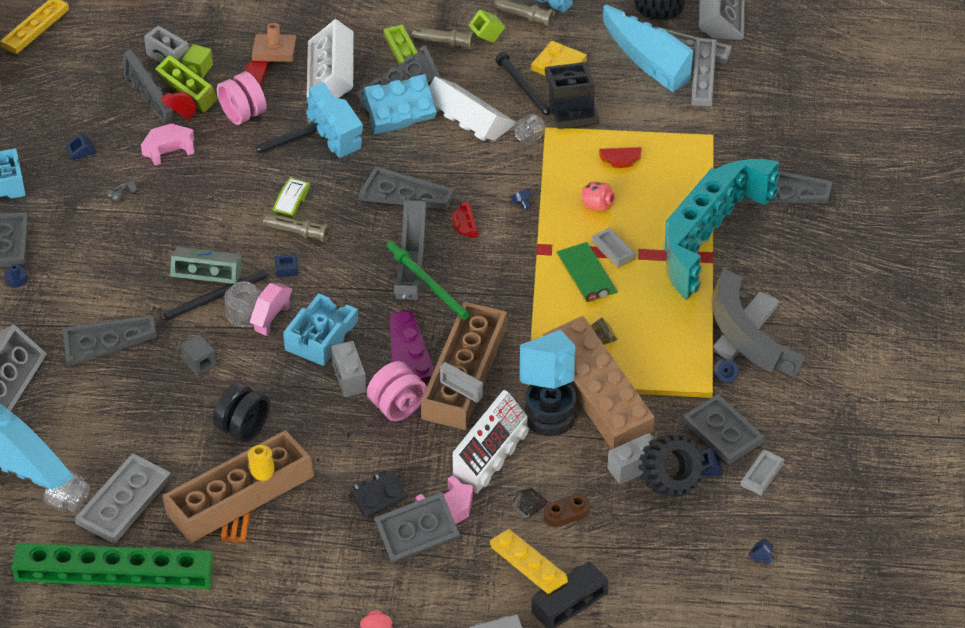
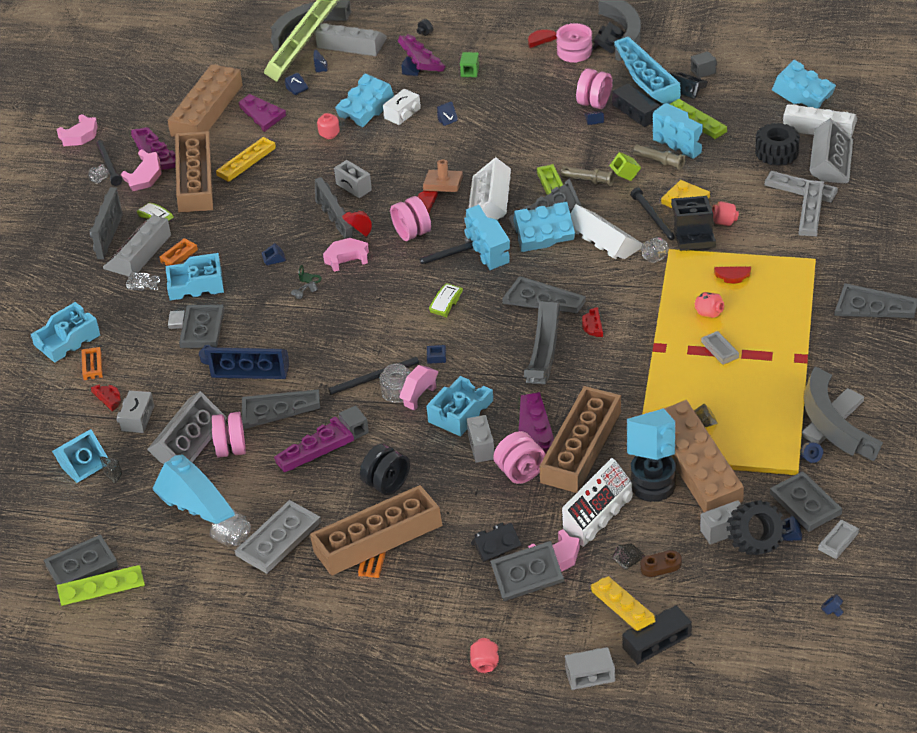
camera: 10 degrees right, 5 degrees down
(48, 377) = (225, 435): none -> bright pink wheel
(65, 285) = (248, 363): none -> dark blue slope
(113, 566) = (264, 591): green brick -> none
(123, 174) = (307, 277): none -> dark green piece
(162, 380) = (320, 443): none -> magenta wing
(183, 79) = (359, 200): lime brick -> none
(198, 60) = (377, 190): lime brick -> none
(206, 265) = (367, 350): sand green brick -> none
(261, 462) = (395, 509): yellow brick -> none
(305, 228) = (455, 324): dark tan pin -> none
(403, 257) = (536, 349): green bar -> none
(461, 382) = (575, 450): light grey tile -> none
(522, 198) = (644, 305): dark blue tile -> none
(587, 272) = (695, 367): green piece -> none
(606, 81) = (724, 213): none -> coral head
(650, 48) = (766, 187): medium azure wedge -> none
(705, 210) = (803, 317): teal slope -> none

